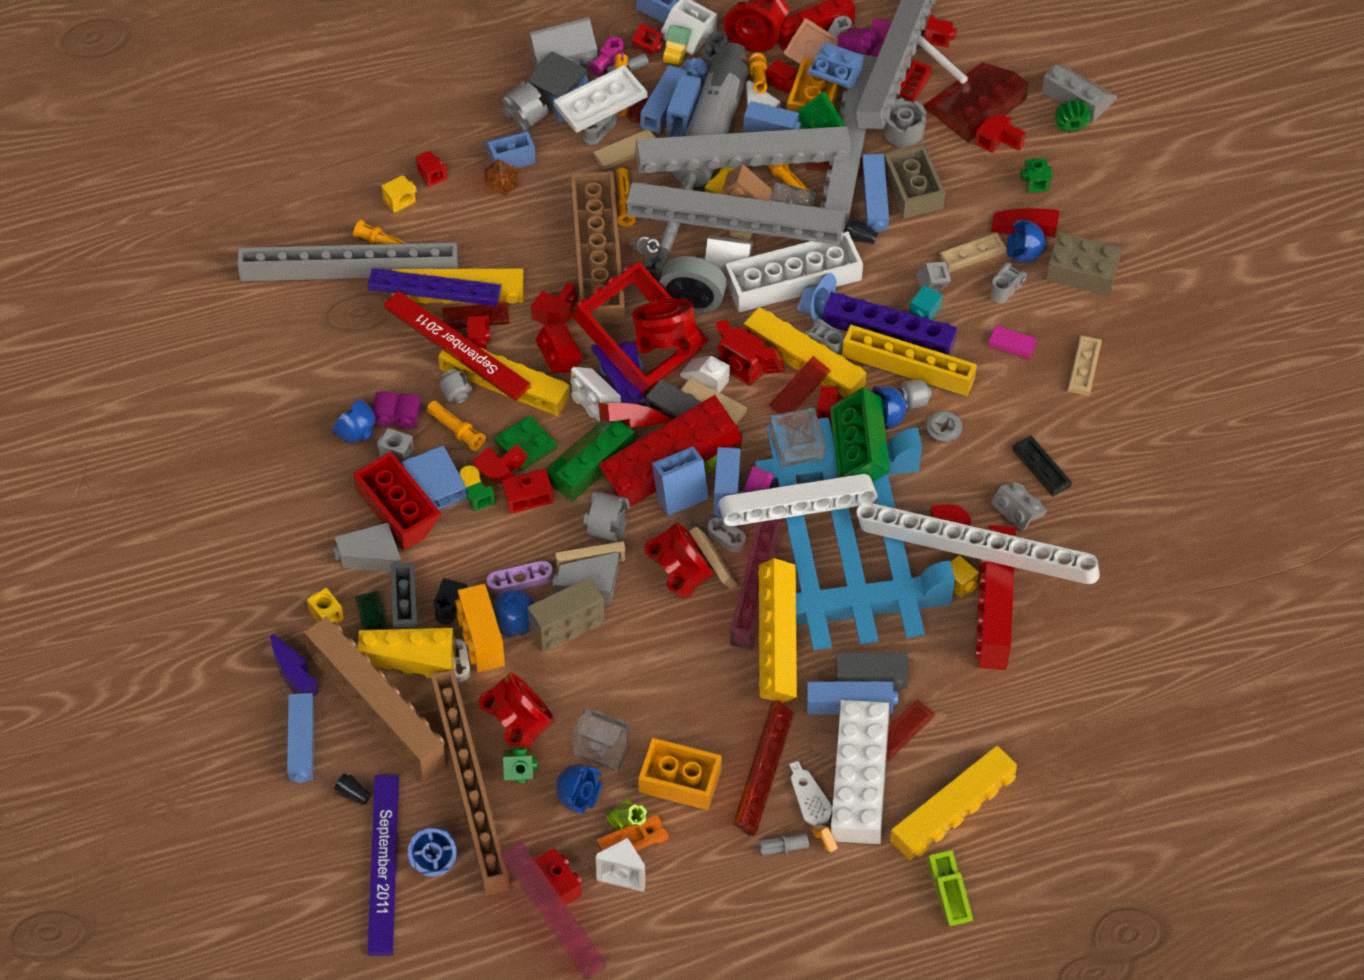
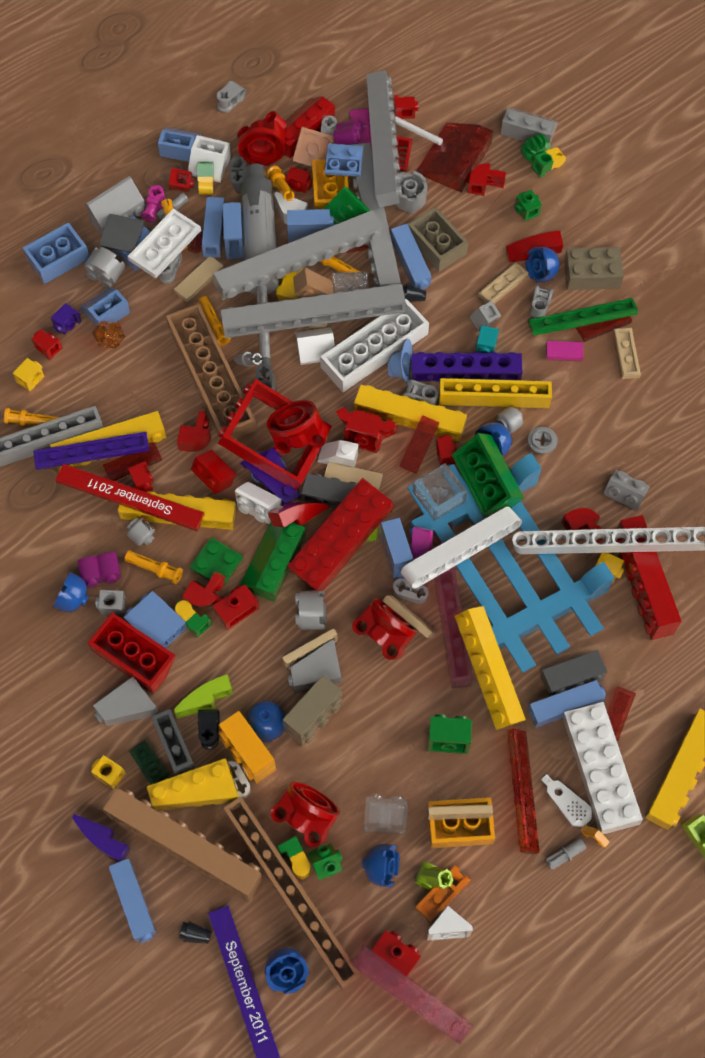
camera: 20 degrees left, 10 degrees up
(456, 567) = (204, 697): none -> lime slope
(461, 149) = (65, 319): none -> dark purple brick
(477, 77) = (56, 253): none -> medium blue brick
(490, 759) = (297, 857): none -> leg
(537, 579) = (259, 678): lavender beam -> none
(679, 755) = (460, 812): none -> tan tile
(680, 481) = (360, 560): medium blue brick -> none
(694, 280) = (302, 381): light grey wheel -> none
(696, 67) = (229, 193): medium blue gear -> none
(704, 684) = (449, 734): none -> green brick
(1041, 466) = (629, 449): pearl dark grey tile -> none
(1049, 311) = (582, 316): none -> green tile
(1072, 327) = (595, 330): none -> clear red tile
(1083, 135) = (547, 161): none -> green leg

